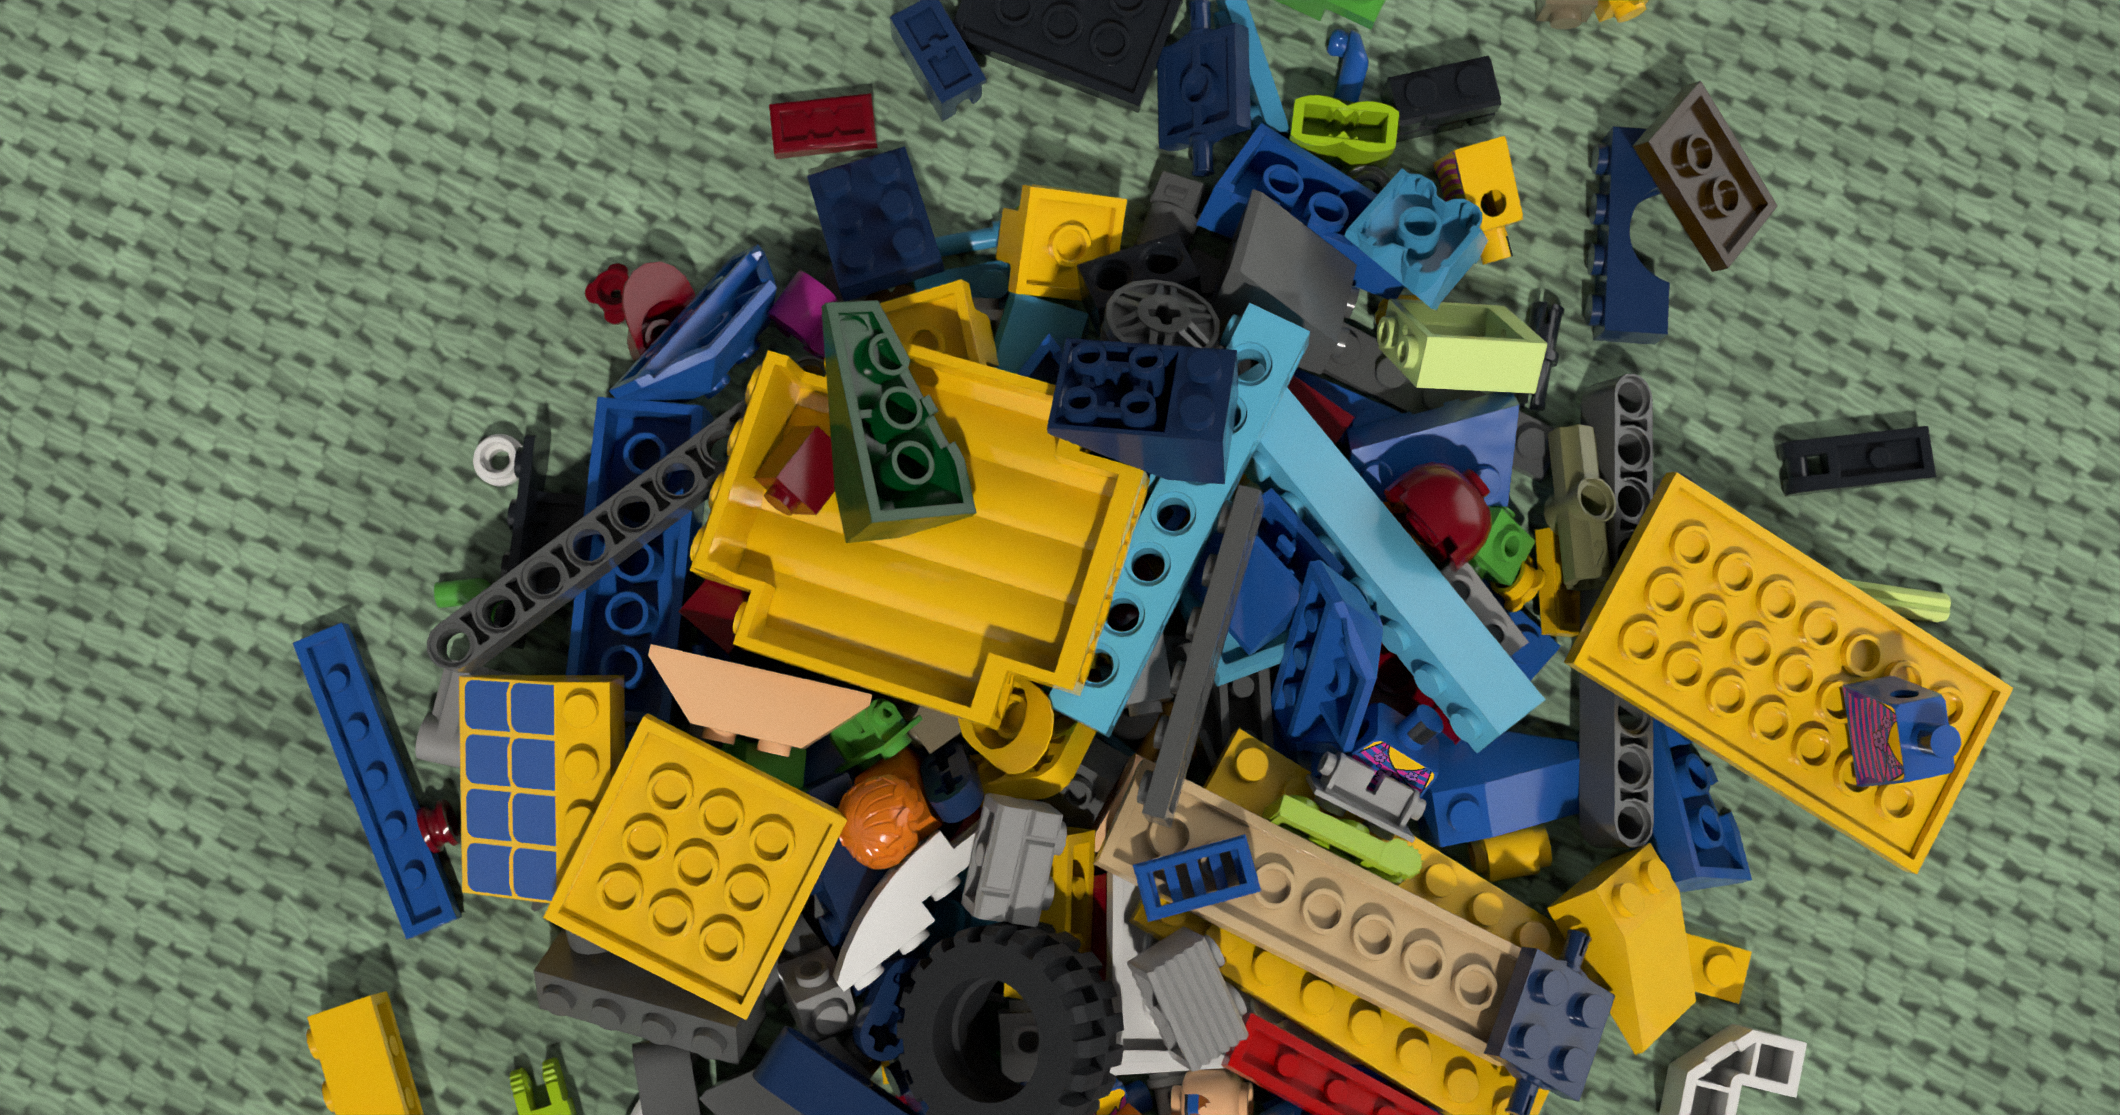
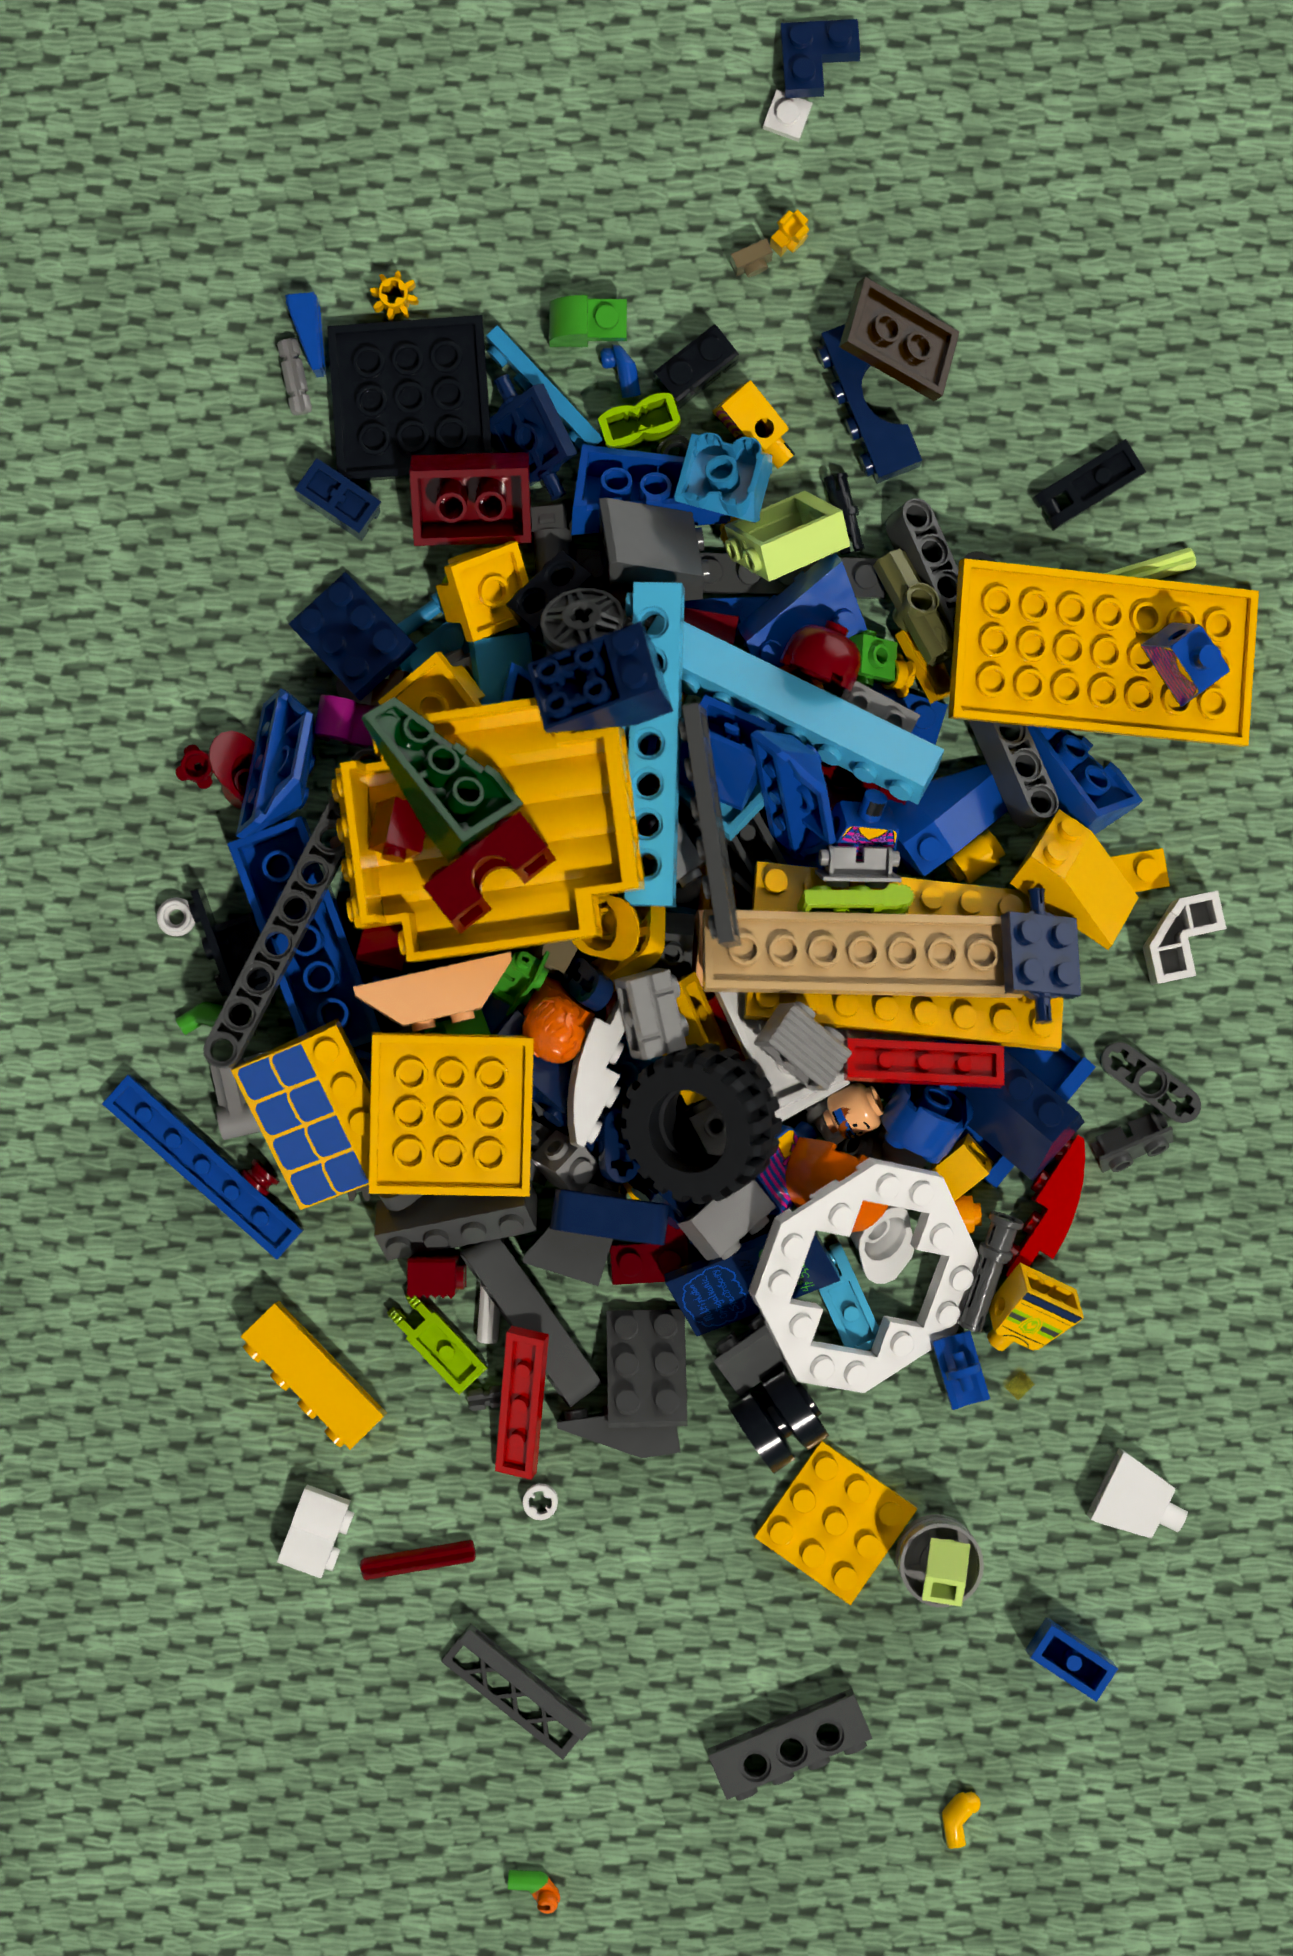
camera: 20 degrees left, 5 degrees up
(586, 1058) = (435, 1275): none -> dark red brick
(823, 126) = (282, 584): dark red plate -> none
(842, 578) = (459, 886): none -> dark red arch
(1095, 125) = (470, 498): none -> dark red brick
(1242, 862) = (798, 947): blue slope -> none

